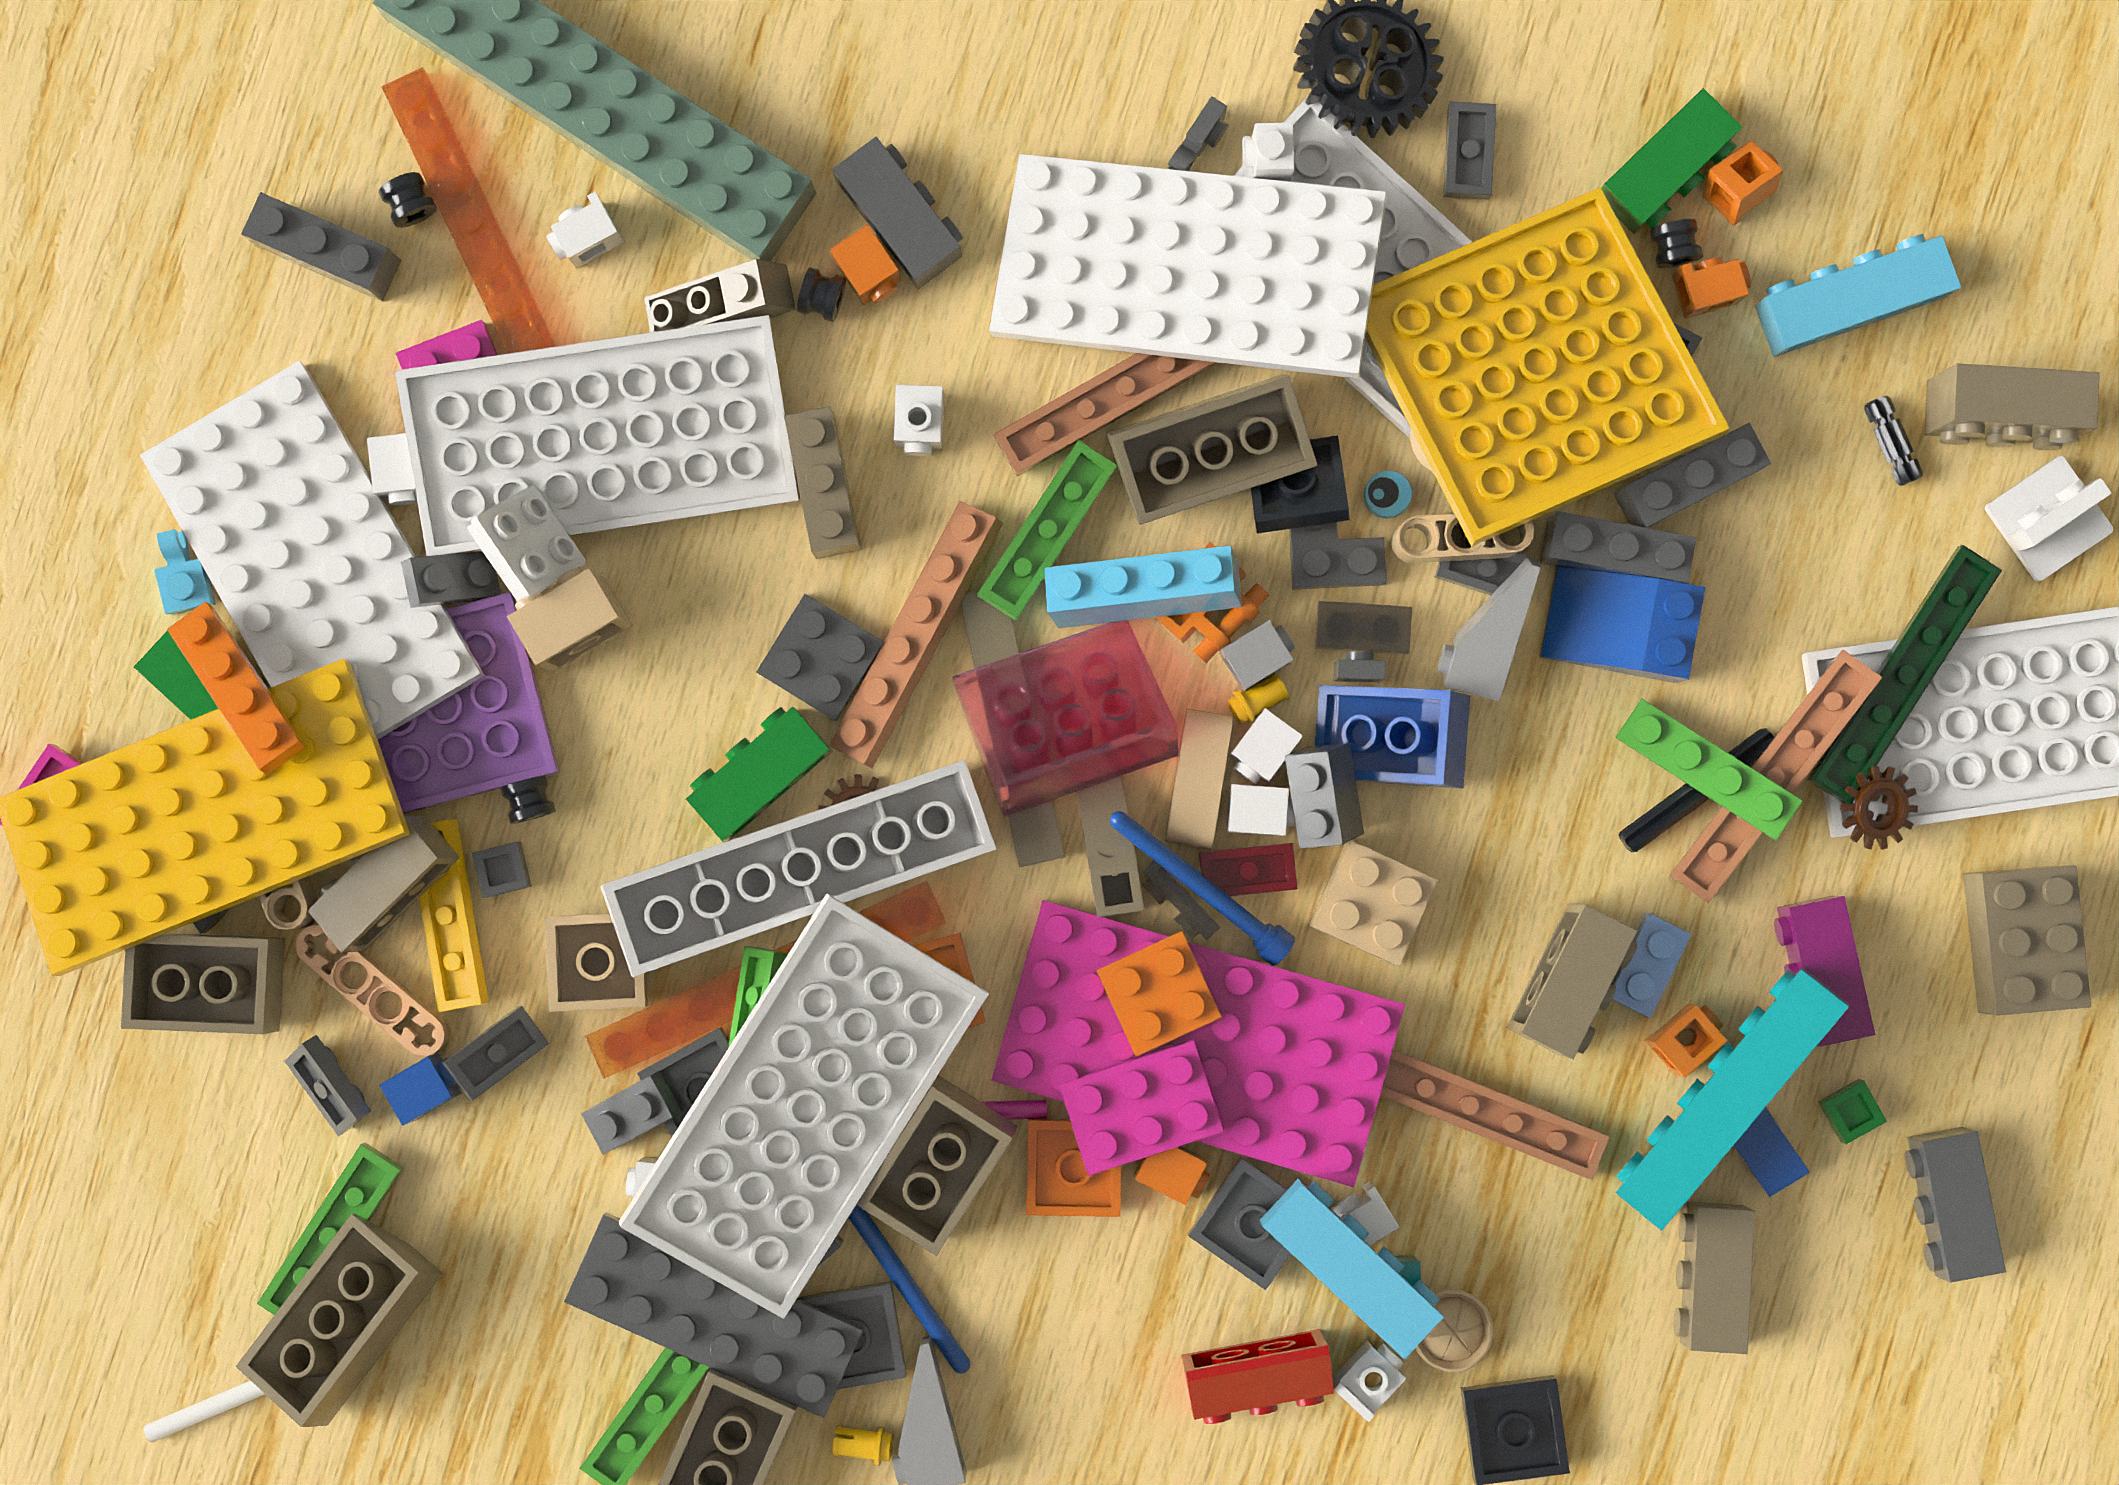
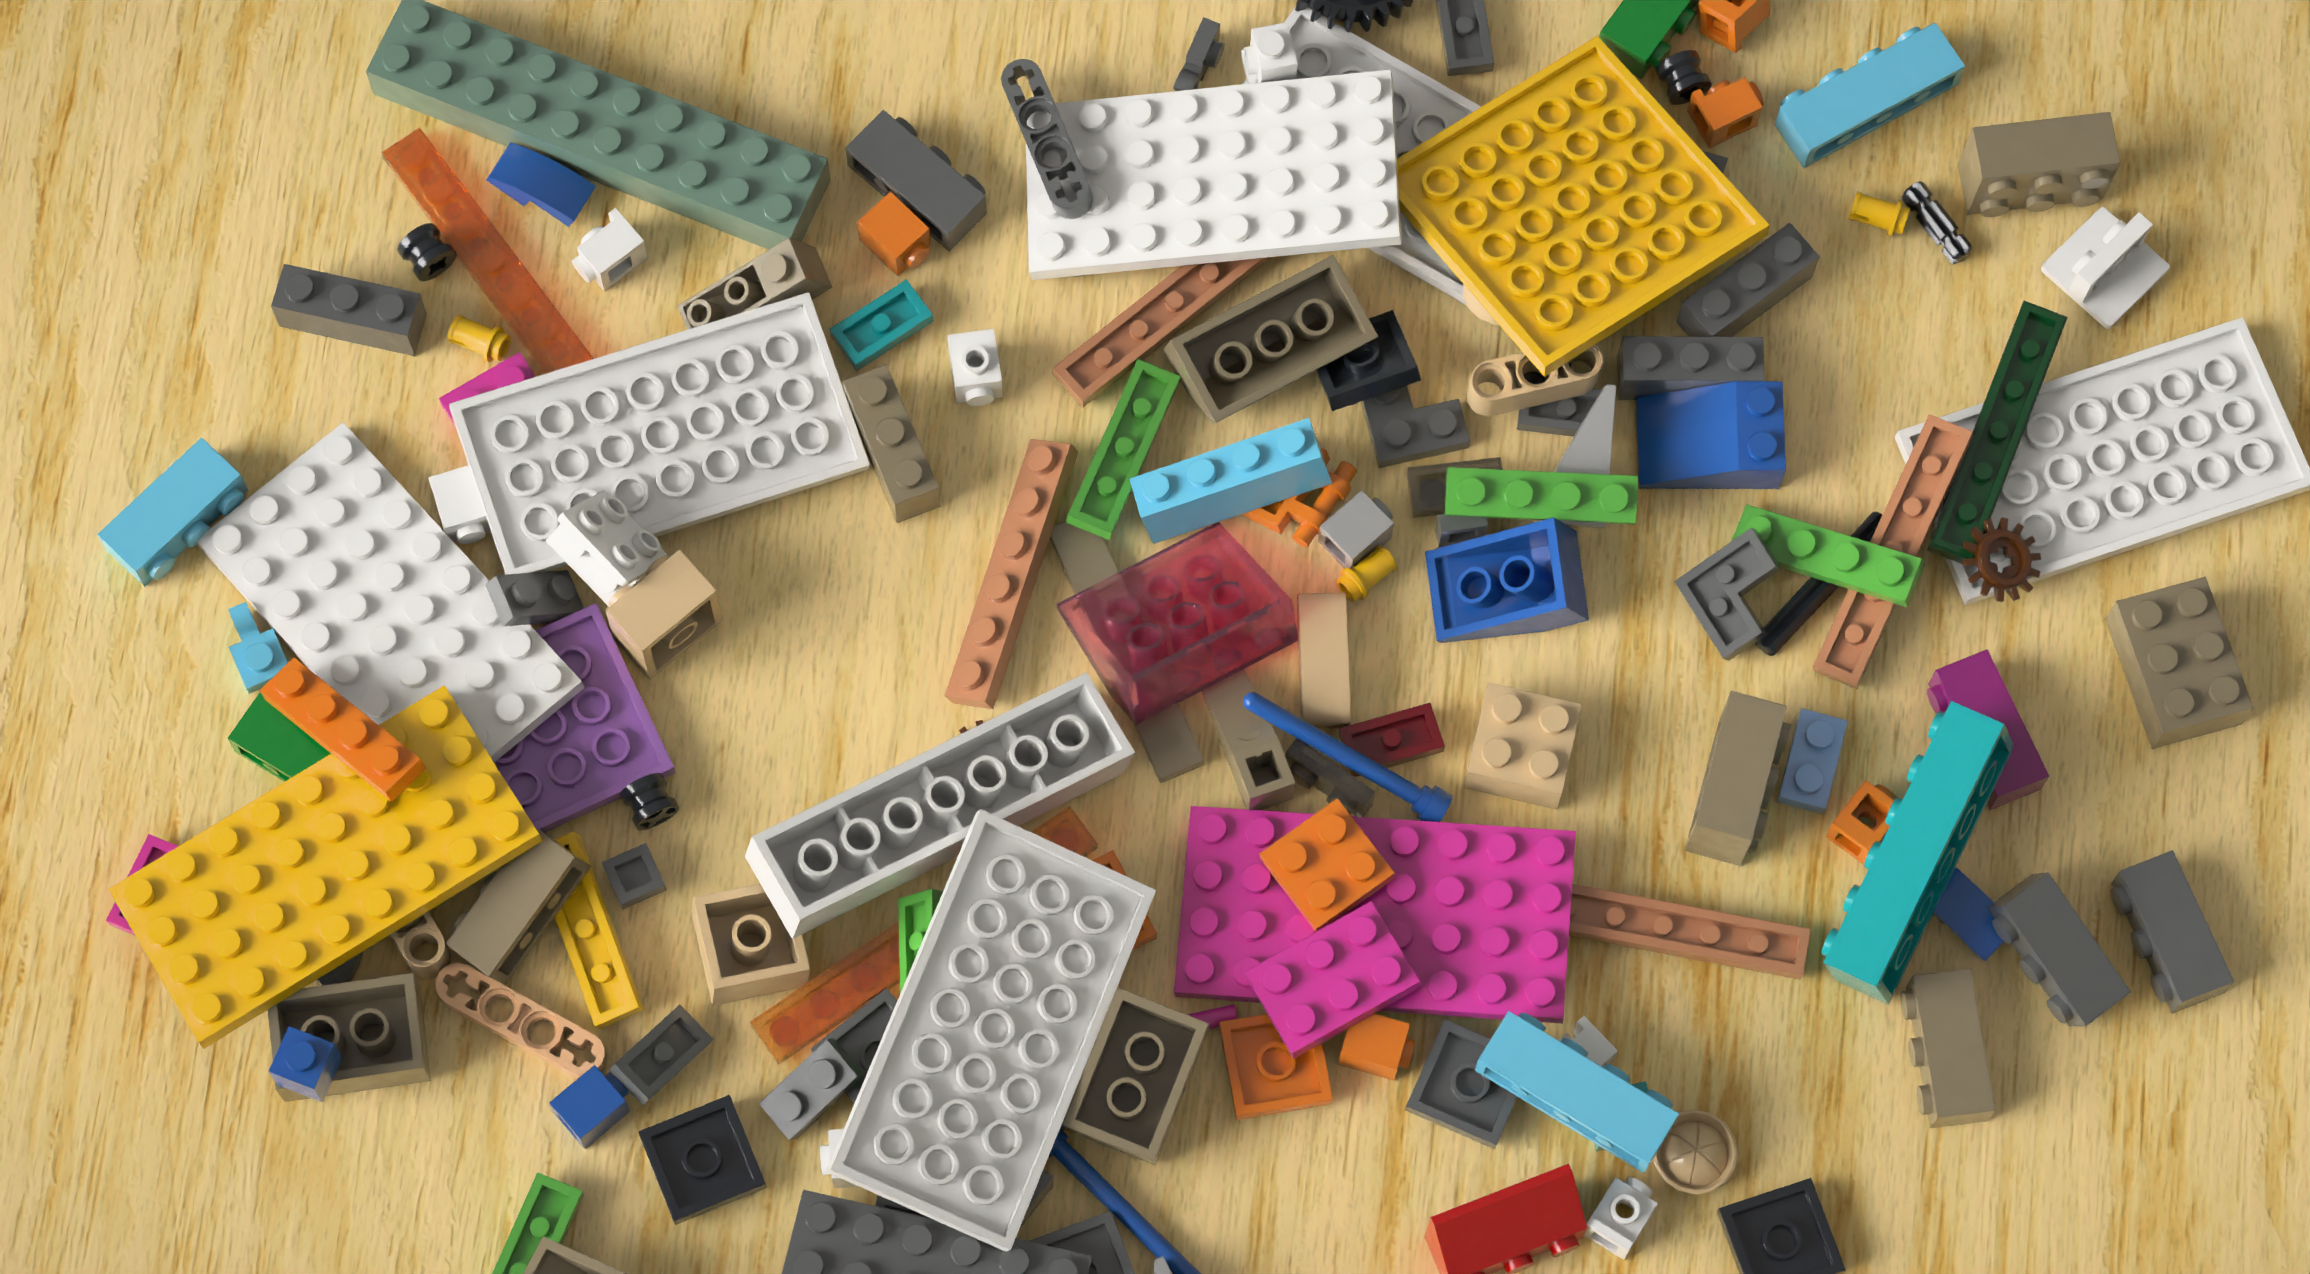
camera: 15 degrees left, 15 degrees down
(121, 424) = (173, 512): none -> medium azure brick
(145, 1018) = (305, 1064): none -> blue brick
(327, 1085) = (492, 1122): dark grey plate -> none
(452, 303) = (479, 338): none -> yellow pin
(518, 1158) = (702, 1159): none -> black plate
(531, 147) = (538, 179): none -> blue slope
(757, 773) = (881, 728): green brick -> none
(820, 657) = (919, 614): dark grey plate -> none
(821, 294) = (855, 268): black wheel -> none
(836, 356) = (881, 325): none -> teal plate
(1032, 196) = (1047, 138): none -> dark grey beam
(1259, 810) = (1390, 676): white brick -> none
(1264, 748) = (1384, 616): white brick -> none
(1324, 795) = (1451, 646): brick -> none
(1387, 494) = (1453, 359): medium azure tile -> none
(1443, 662) = (1541, 495): none -> bright green plate
(1593, 785) = (1717, 591): none -> dark grey plate
(1839, 421) = (1879, 213): none -> yellow pin
(1842, 1207) = (2057, 950): none -> dark grey brick
(1852, 1111) = (2049, 855): green plate -> none

